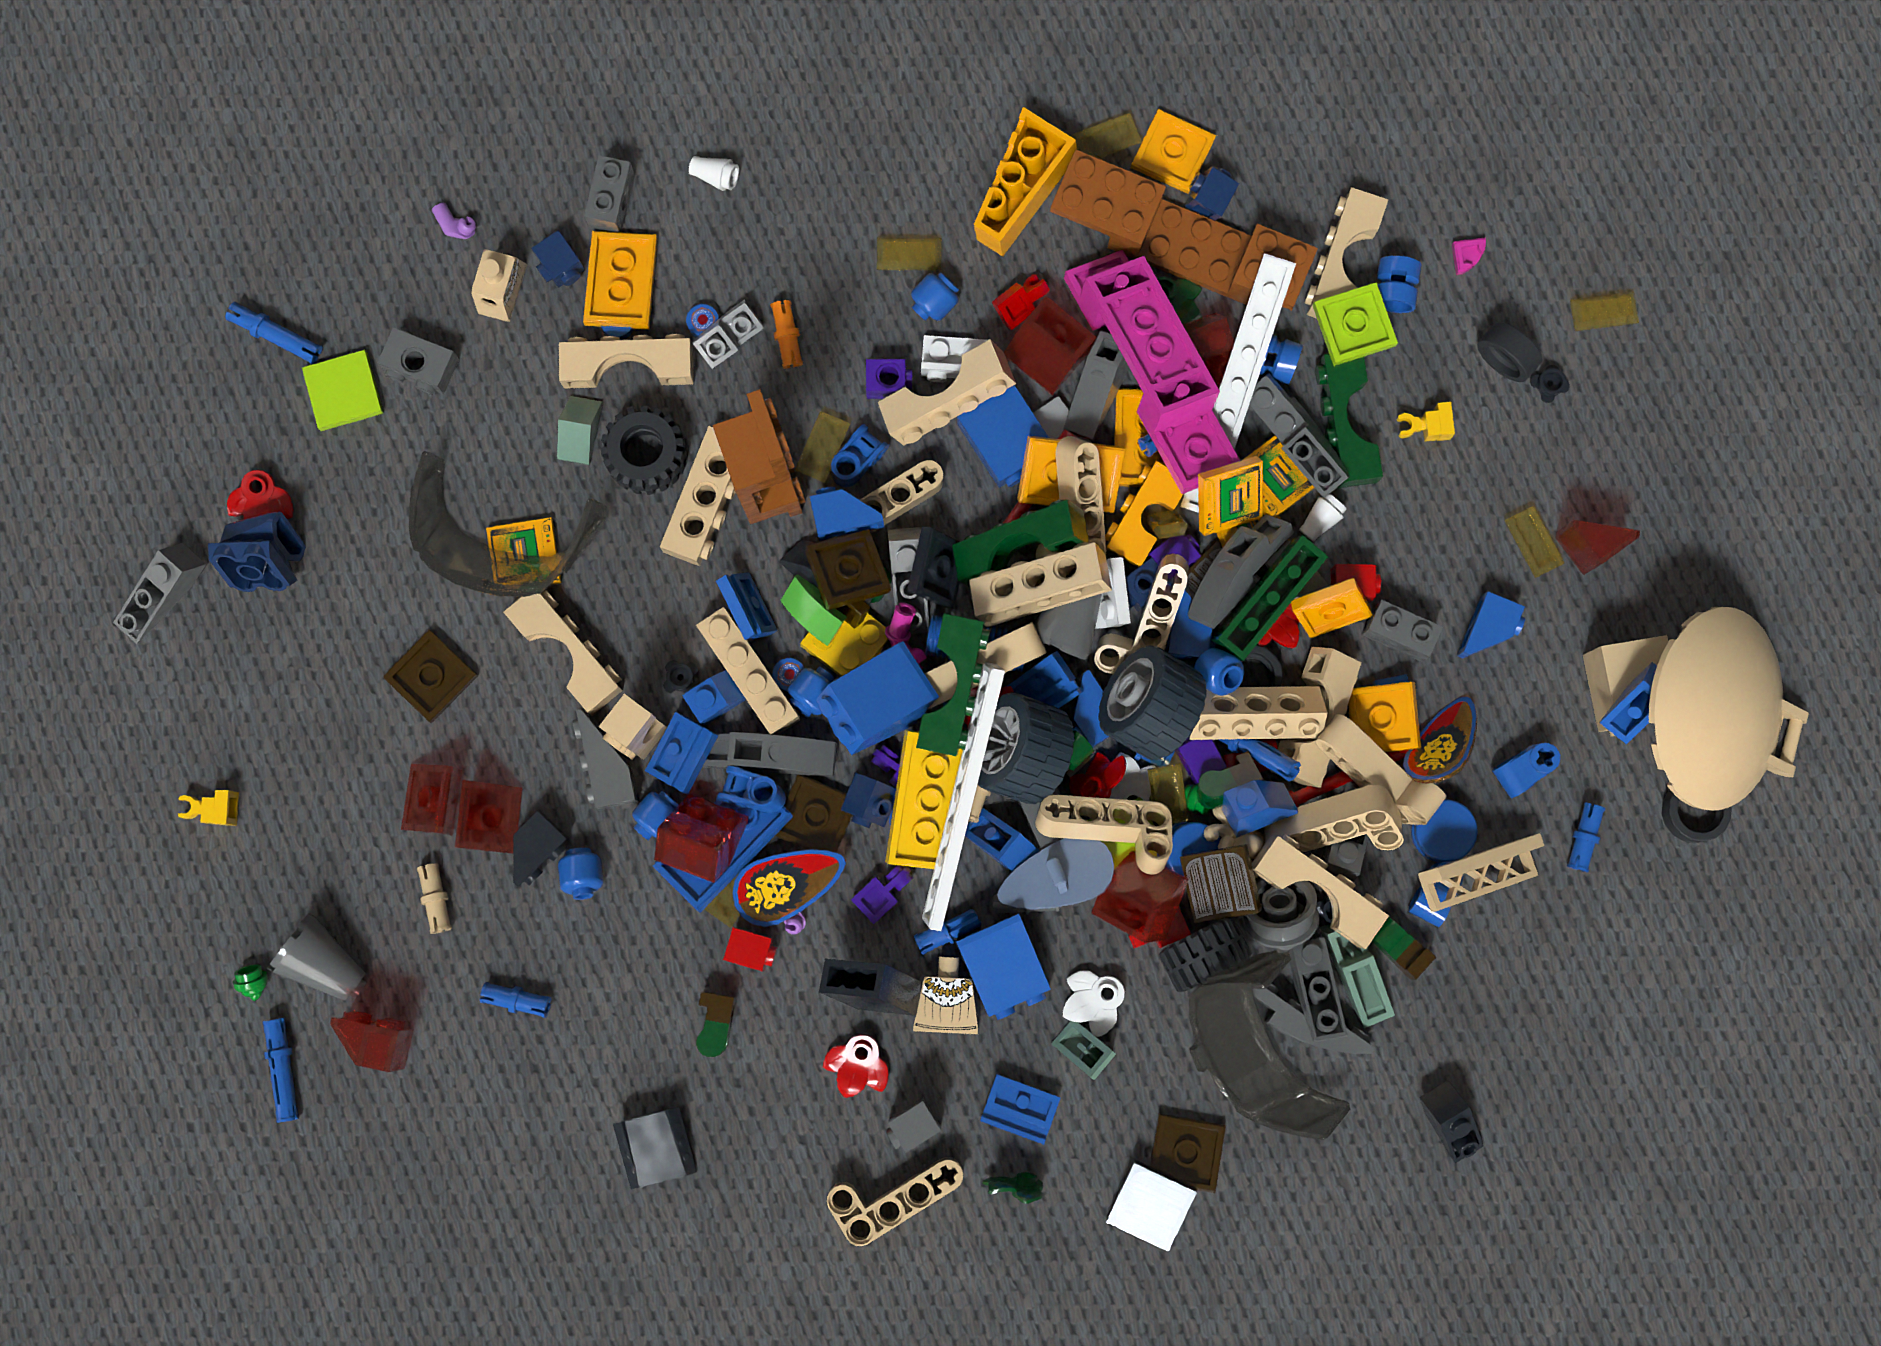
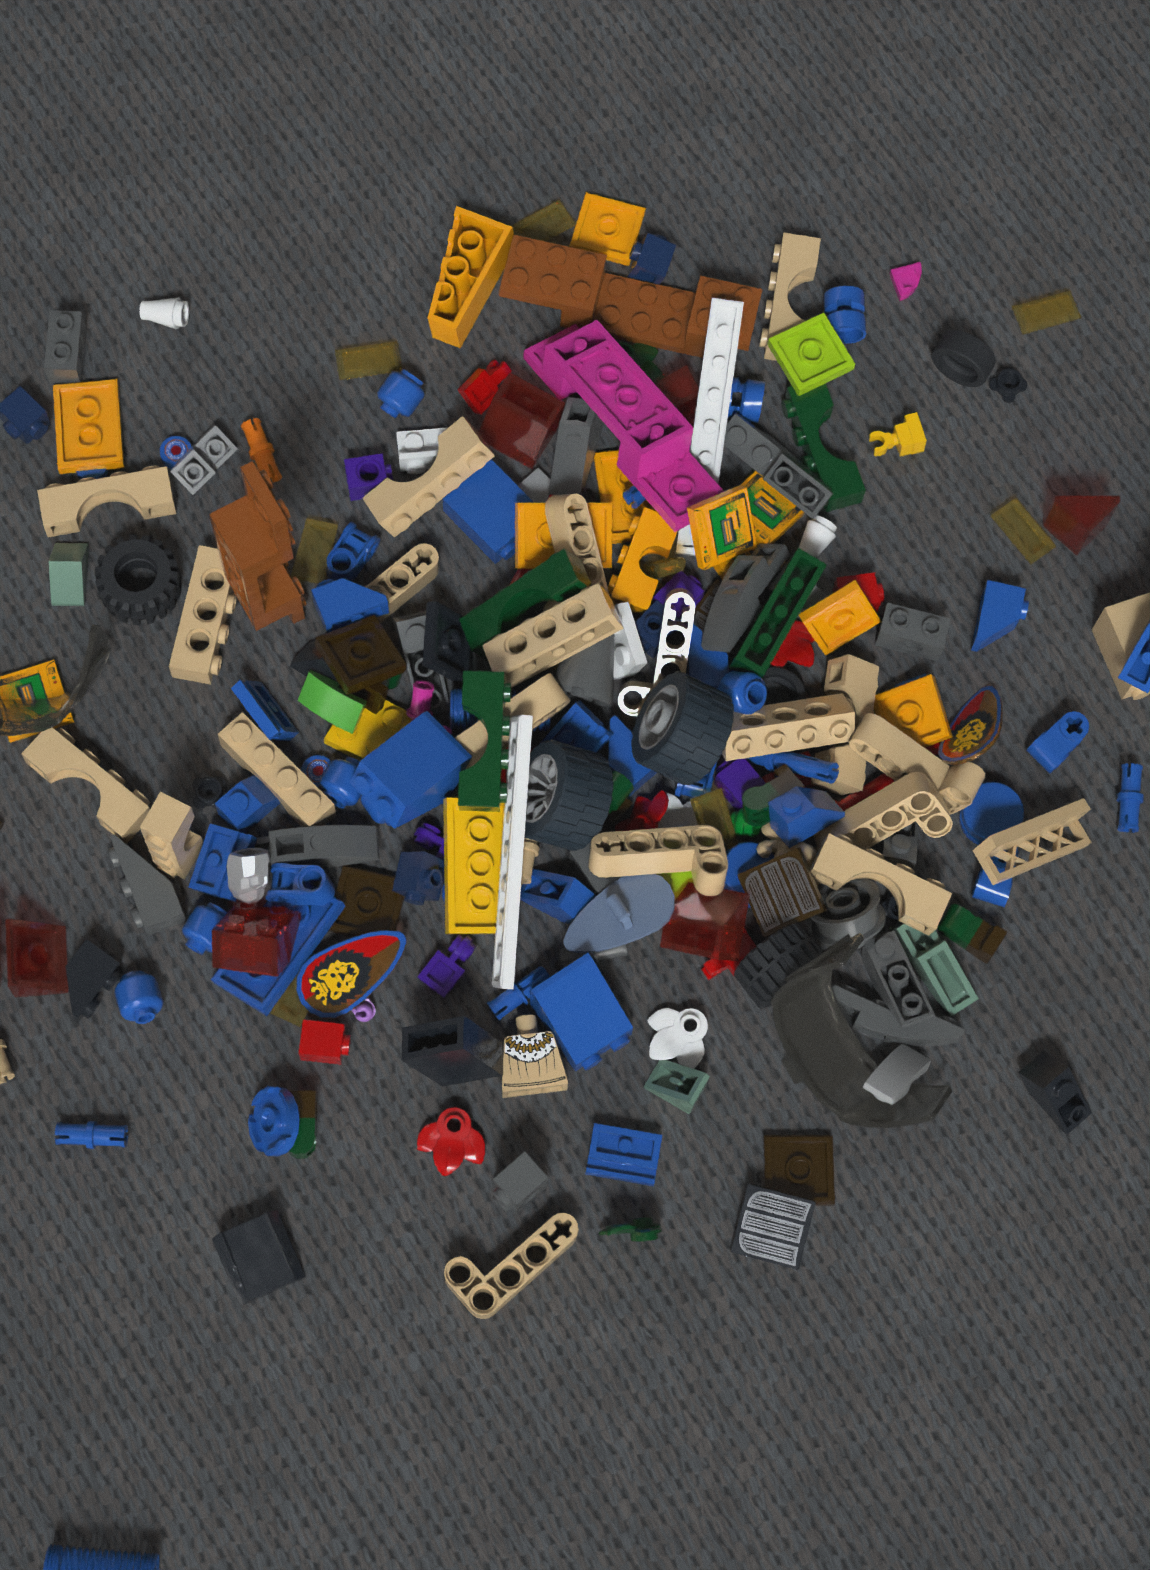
camera: 15 degrees left, 10 degrees down
(689, 1020) = (274, 1121): none -> blue tile
(703, 771) = (248, 874): none -> light grey rock
(1299, 1079) = (896, 1073): none -> light grey slope

